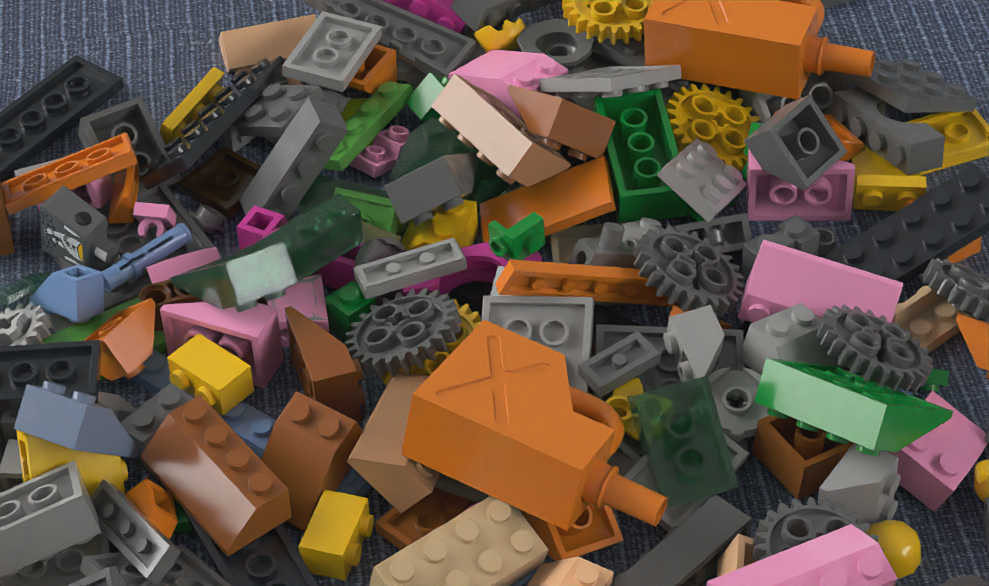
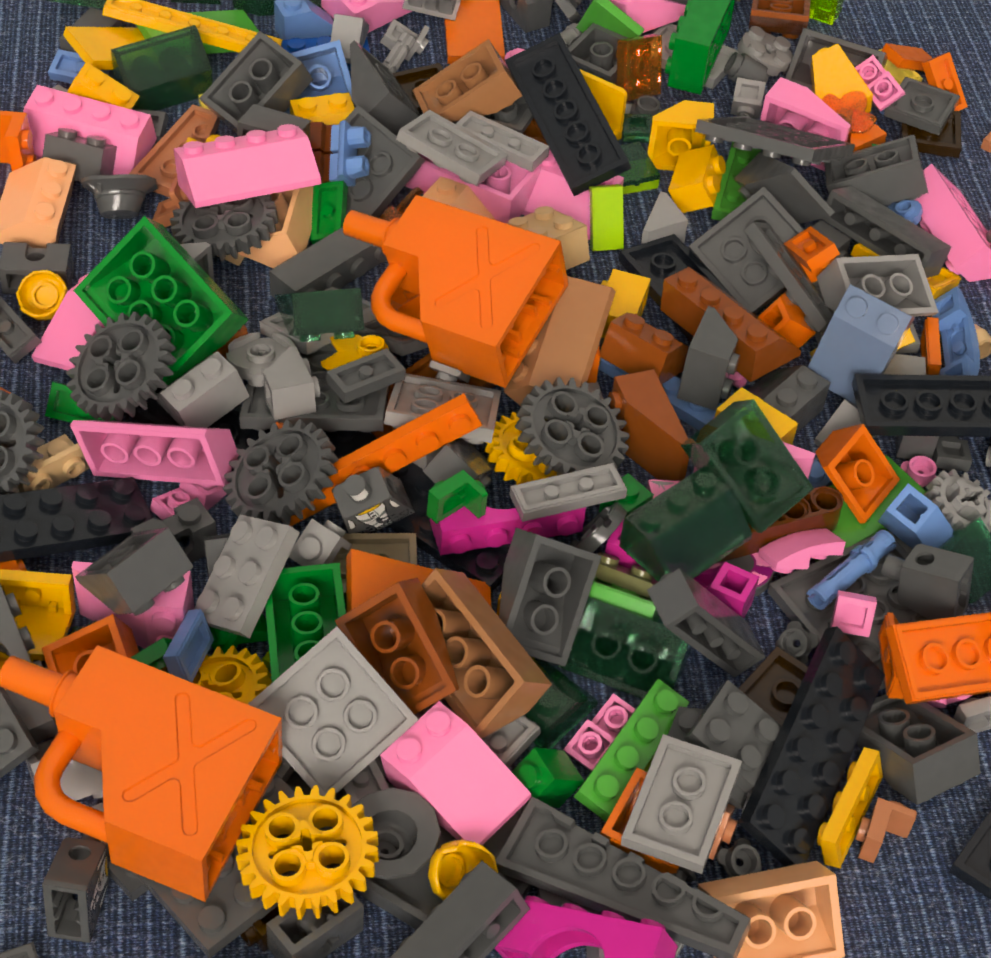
camera: 175 degrees right, 5 degrees up
(103, 531) = (812, 251): none -> orange slope
(163, 103) = (888, 817): none -> nougat bracket
(251, 405) = (709, 362): none -> dark grey slope
(739, 130) = (189, 646): none -> medium blue tile

